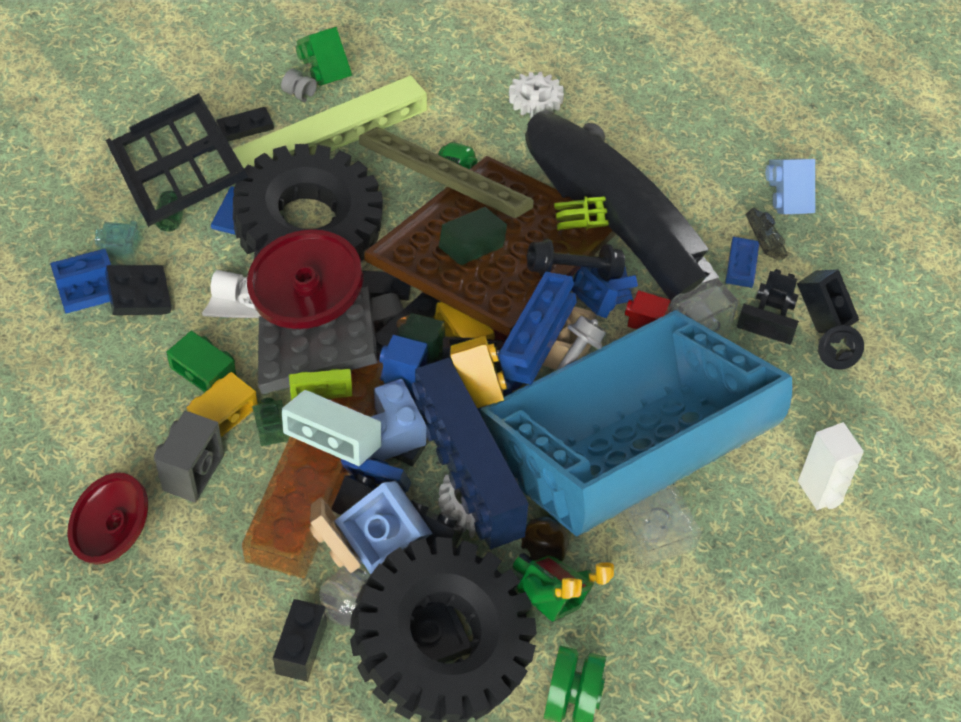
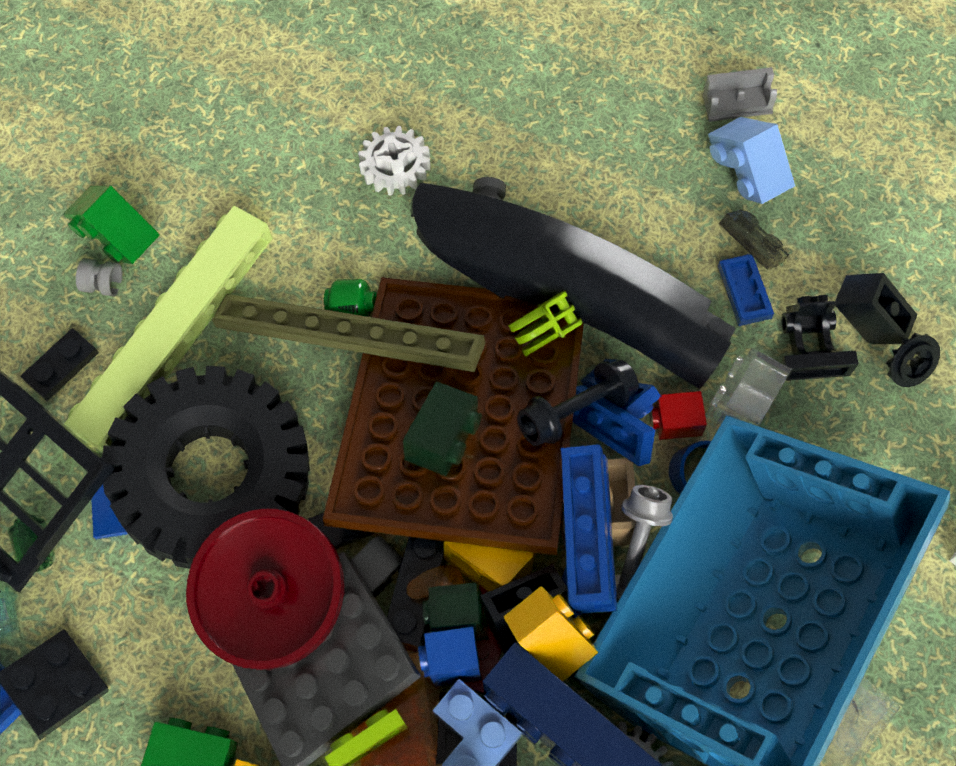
camera: 20 degrees left, 15 degrees up
(229, 297) = (169, 635): white panel -> none
(808, 144) = (739, 94): none -> light grey hinge

